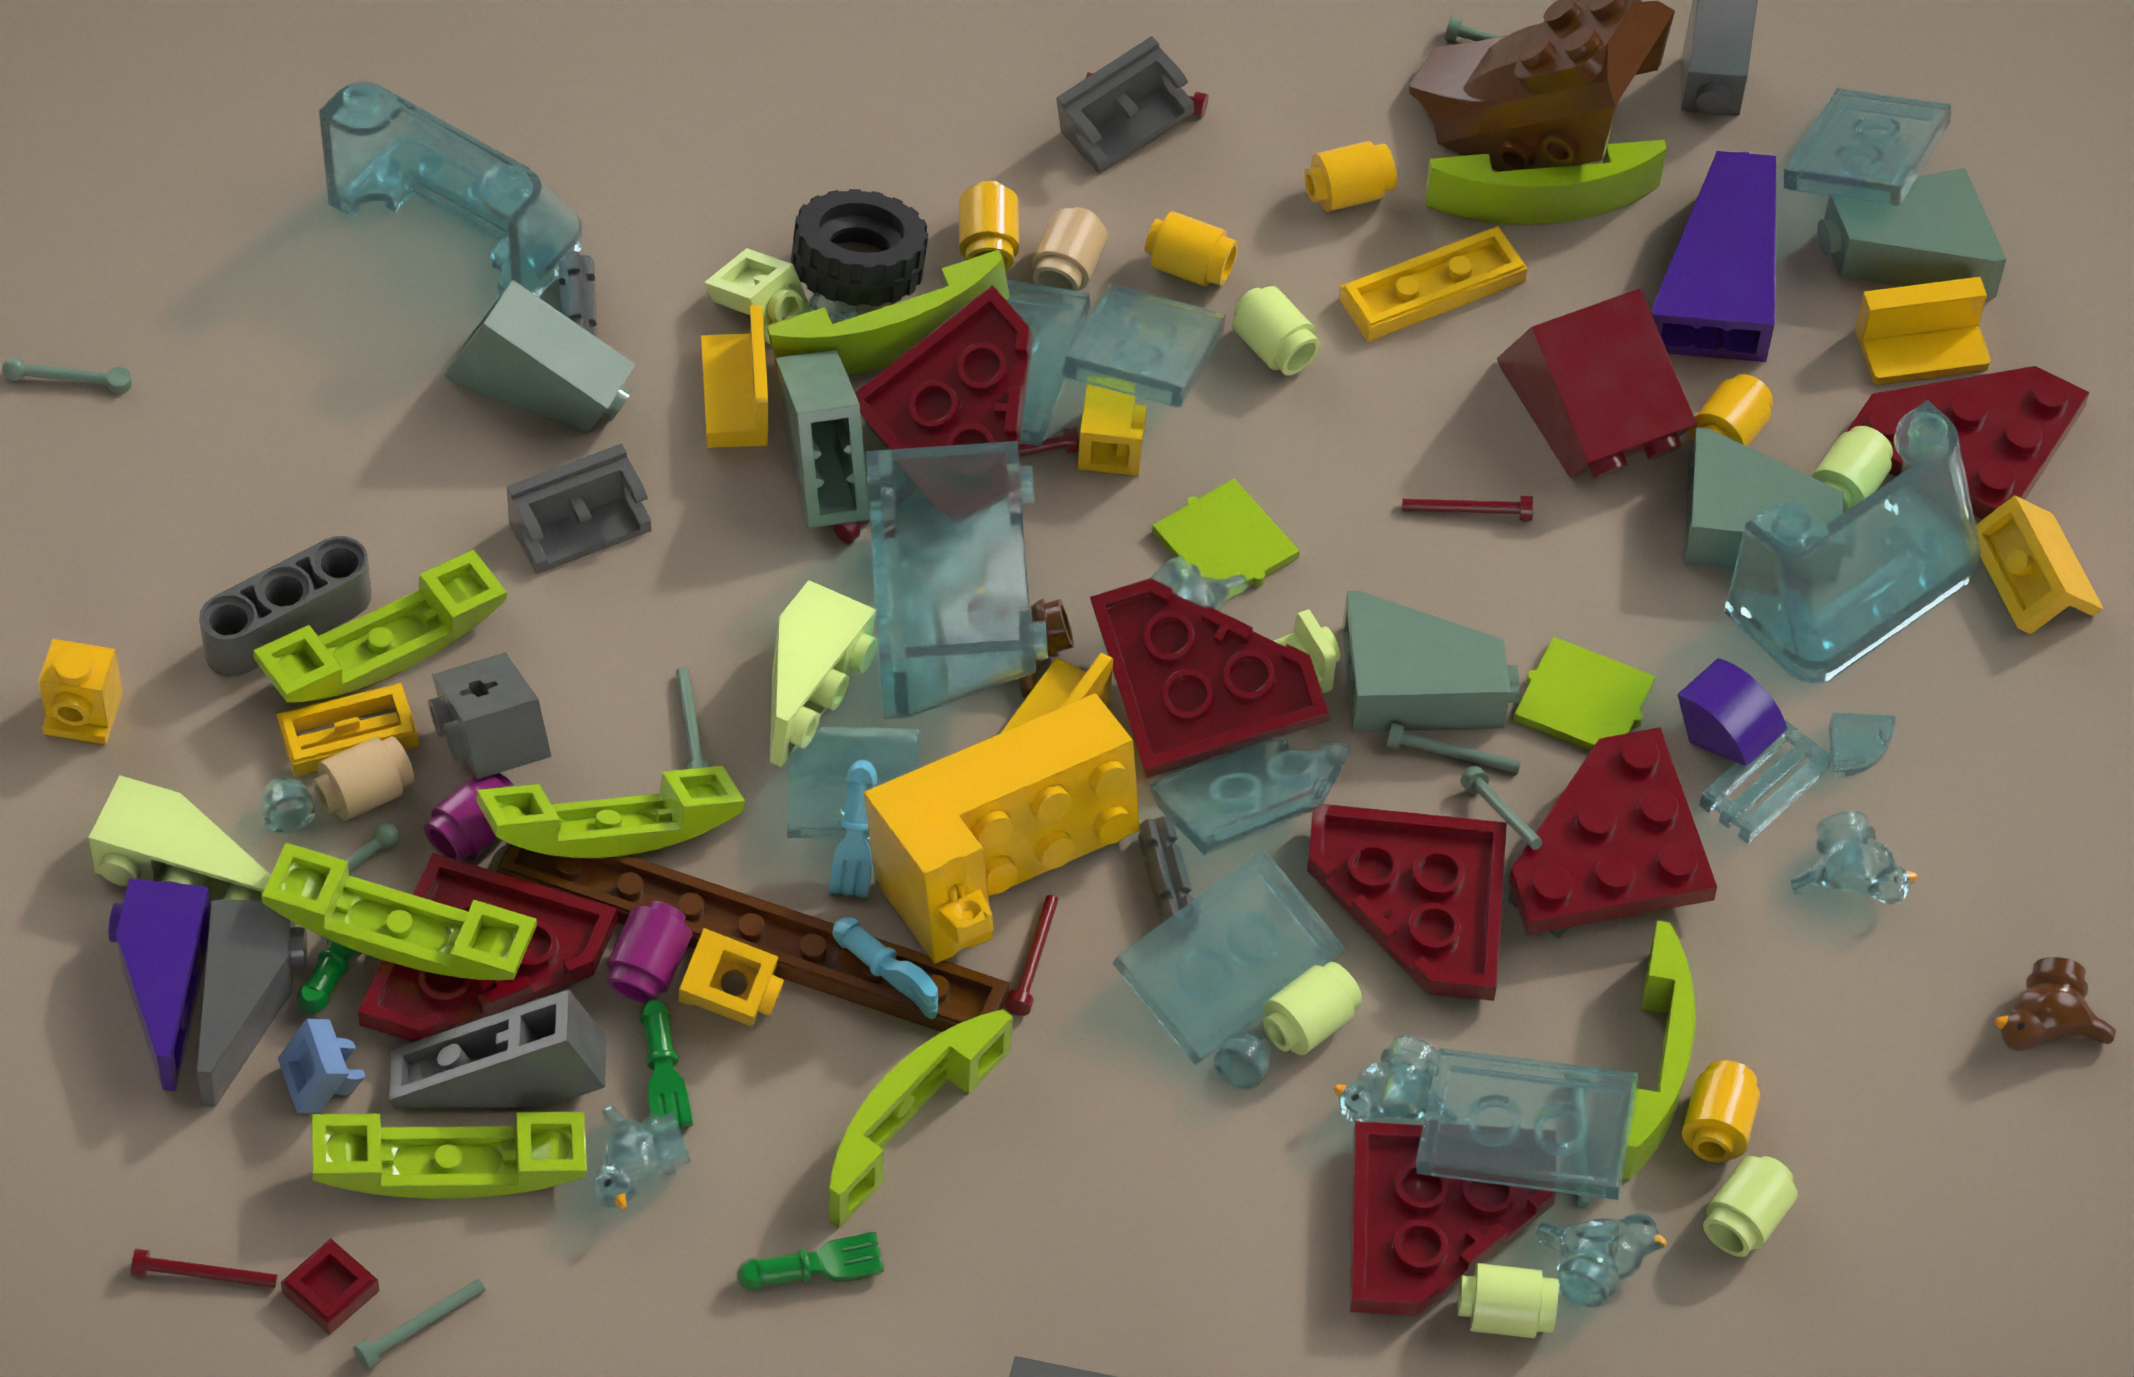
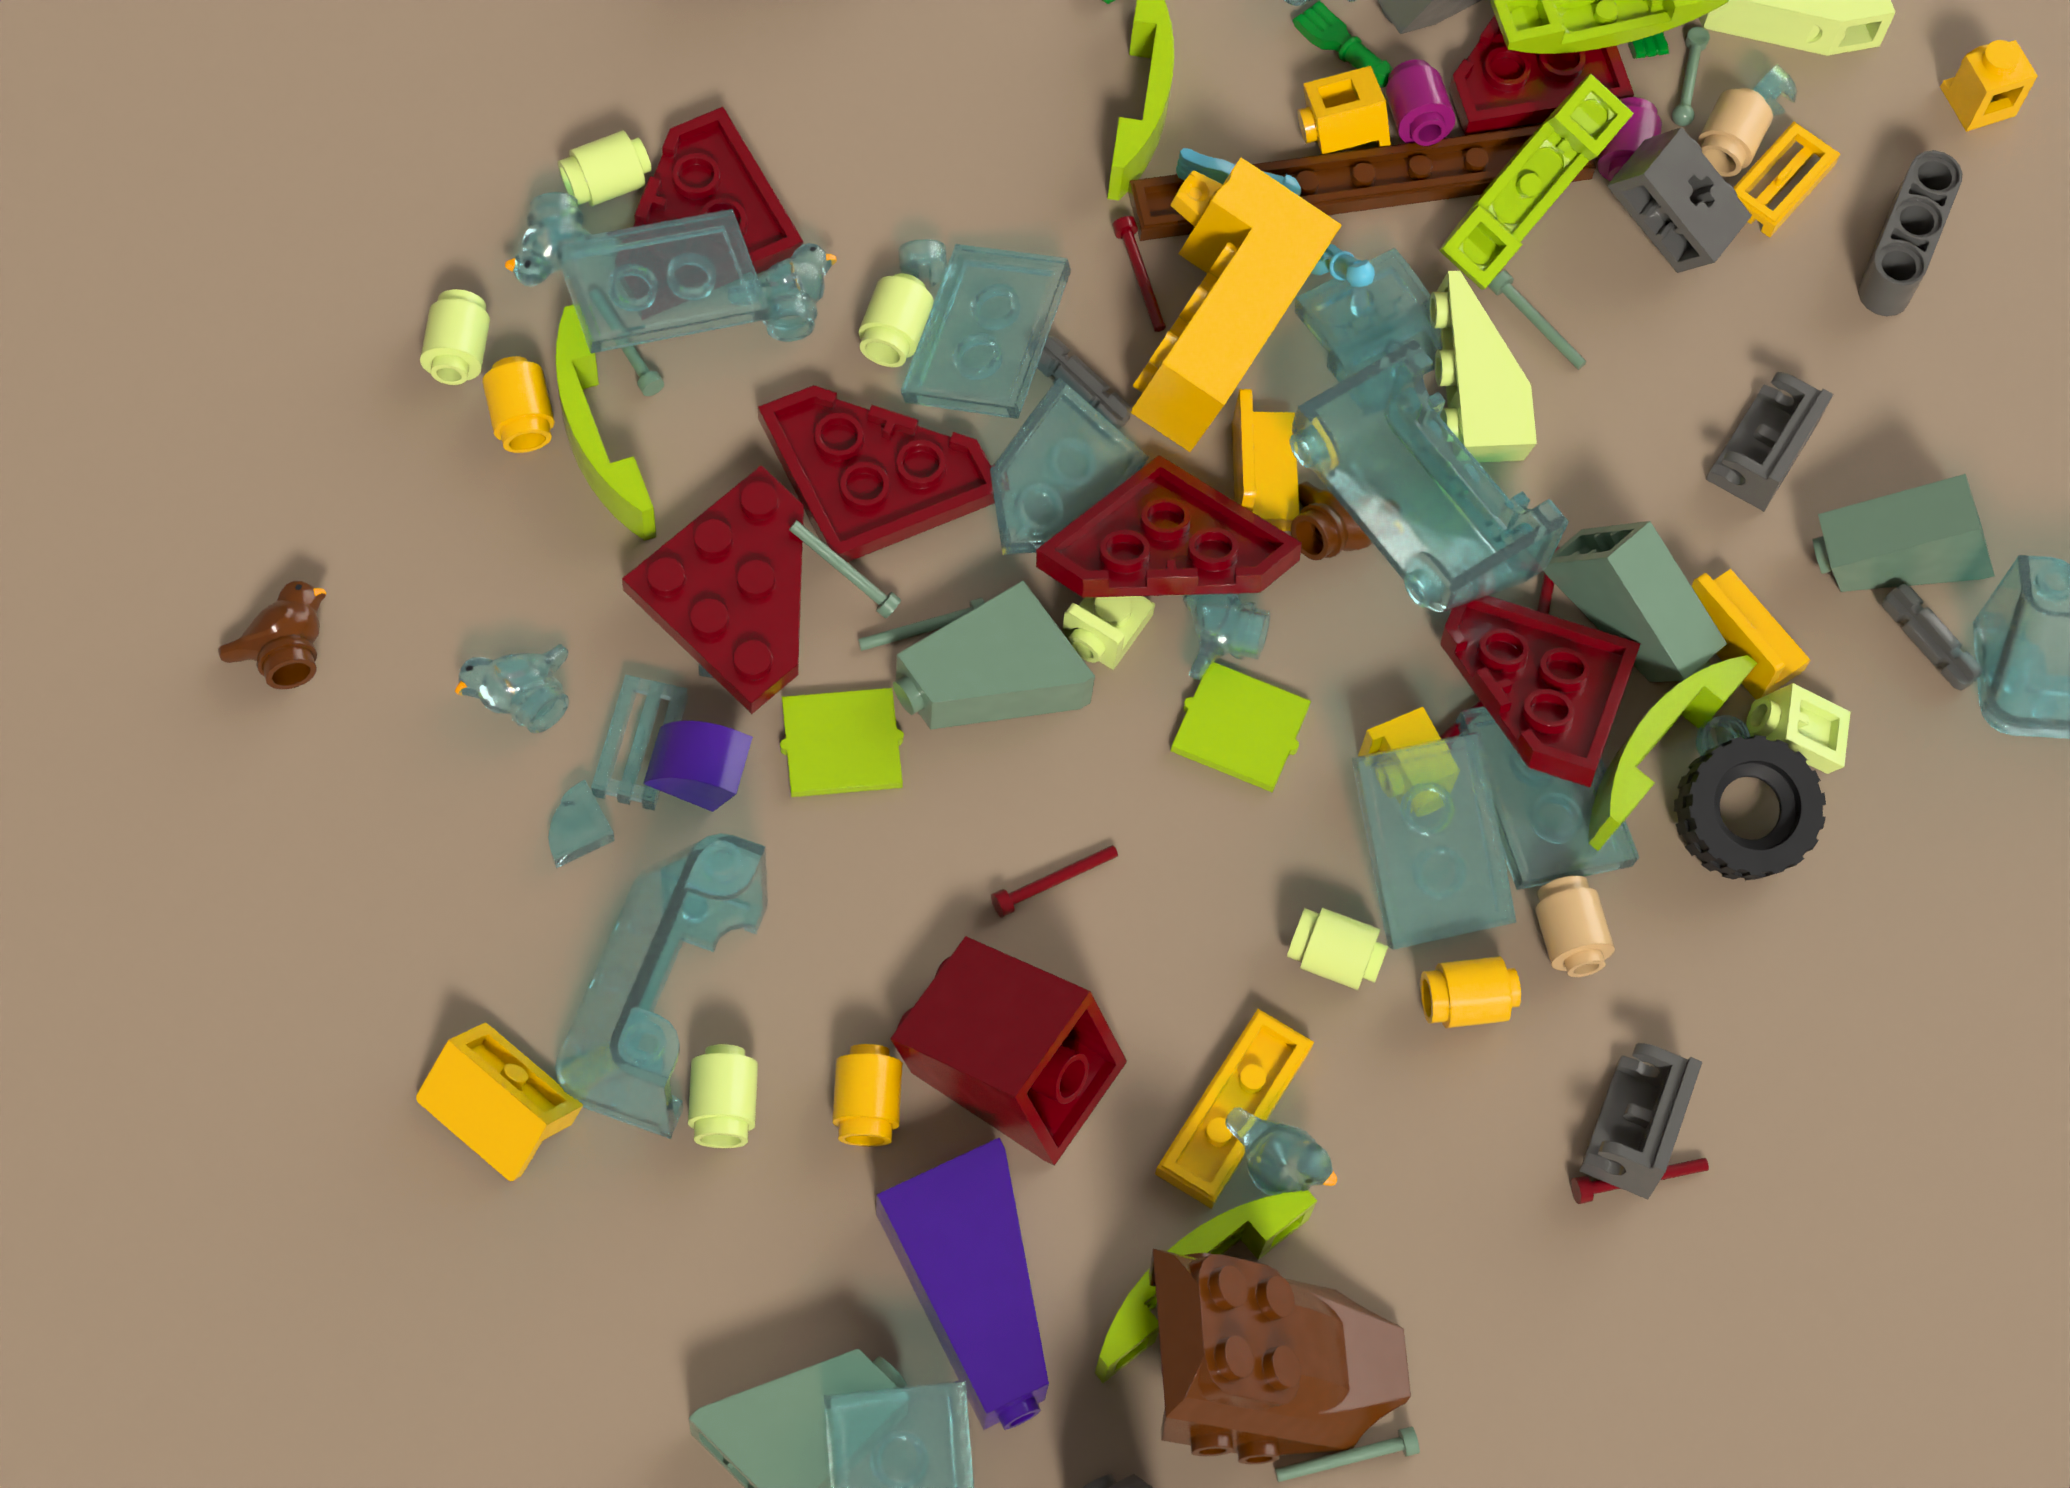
camera: 145 degrees right, 10 degrees up
(387, 640) = (1825, 245): lime slope -> none
(989, 221) = (1662, 913): yellow brick -> none
(1350, 175) = (1384, 1169): yellow brick -> none
(1428, 208) = (1280, 1154): none -> clear light blue animal
(1733, 486) = (786, 997): sand green slope -> none
(1923, 331) = (734, 1318): yellow panel -> none
(2004, 425) = (629, 1226): dark red plate -> none

